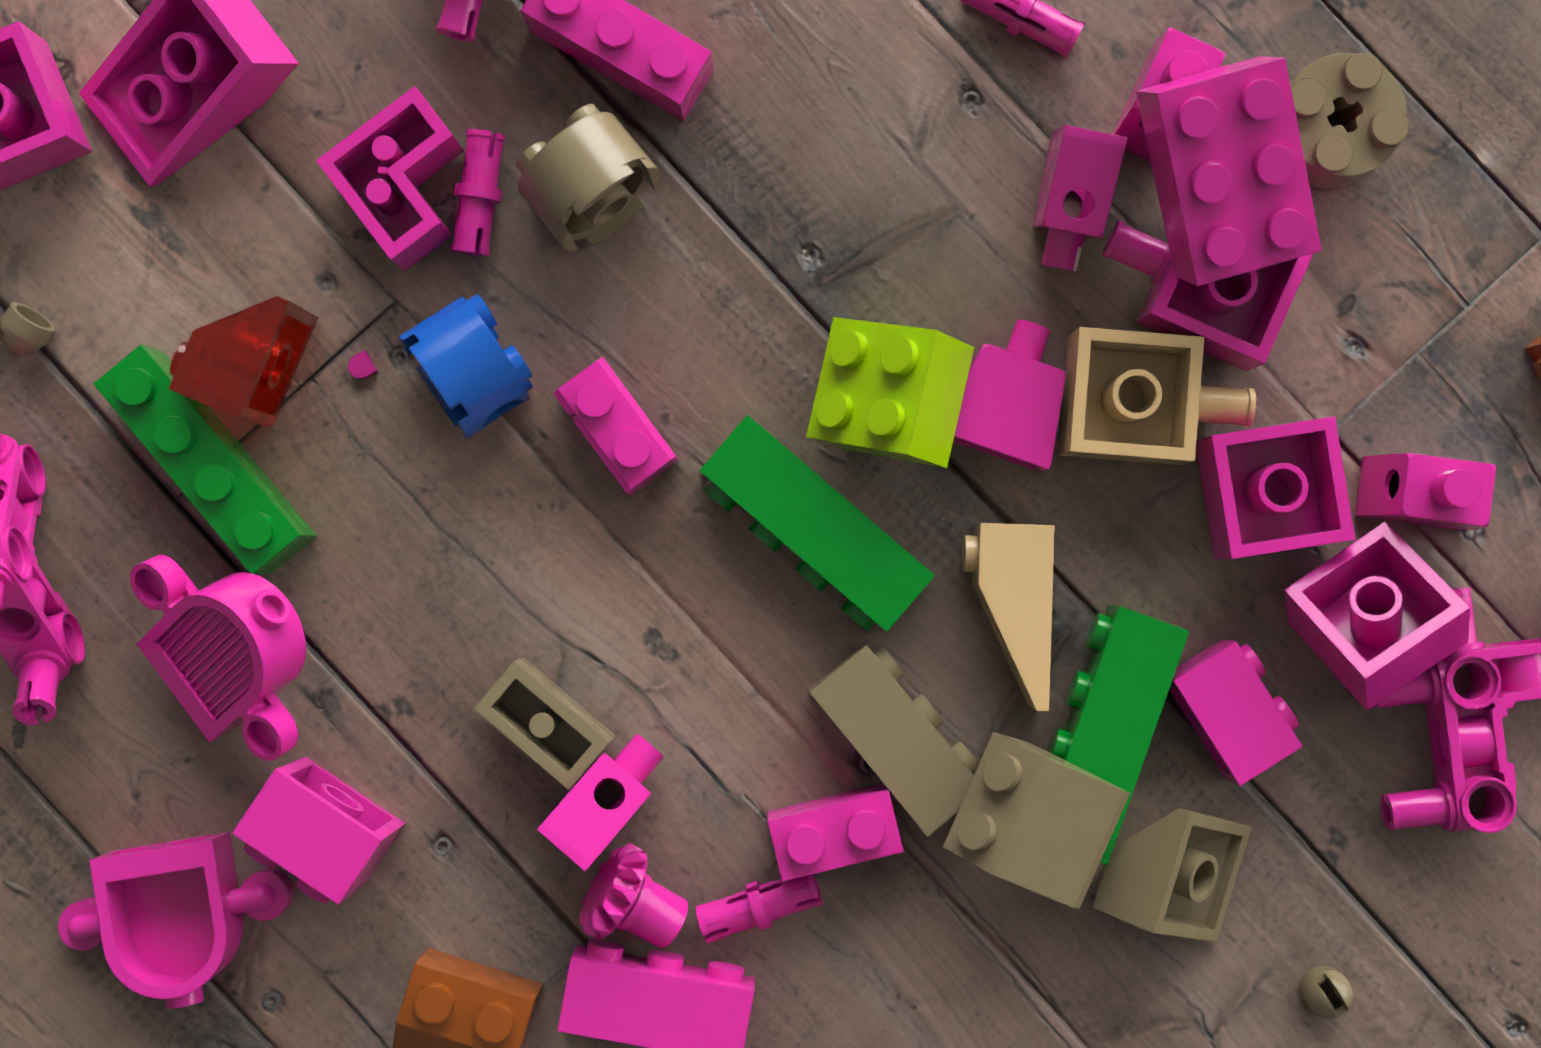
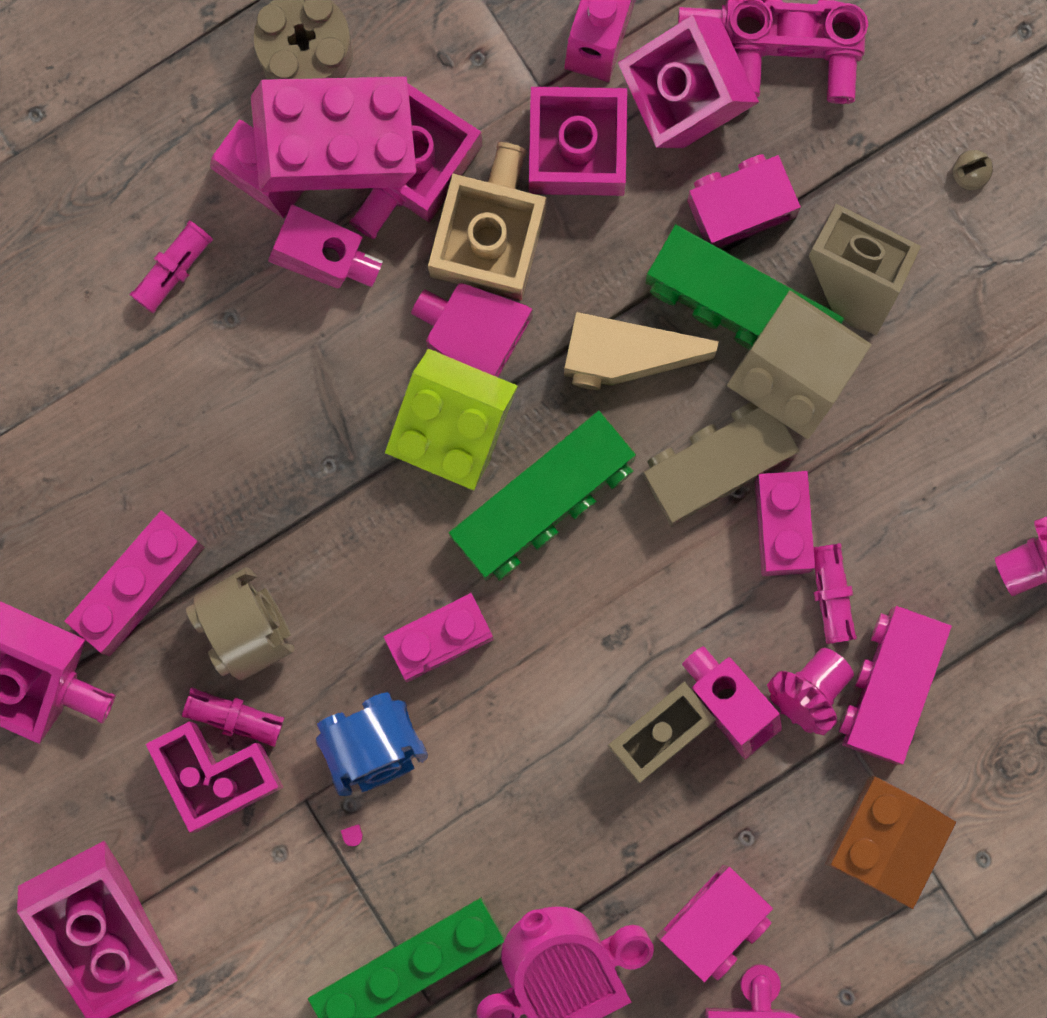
camera: 70 degrees left, 5 degrees down
(244, 360) = (335, 921): clear red slope -> none

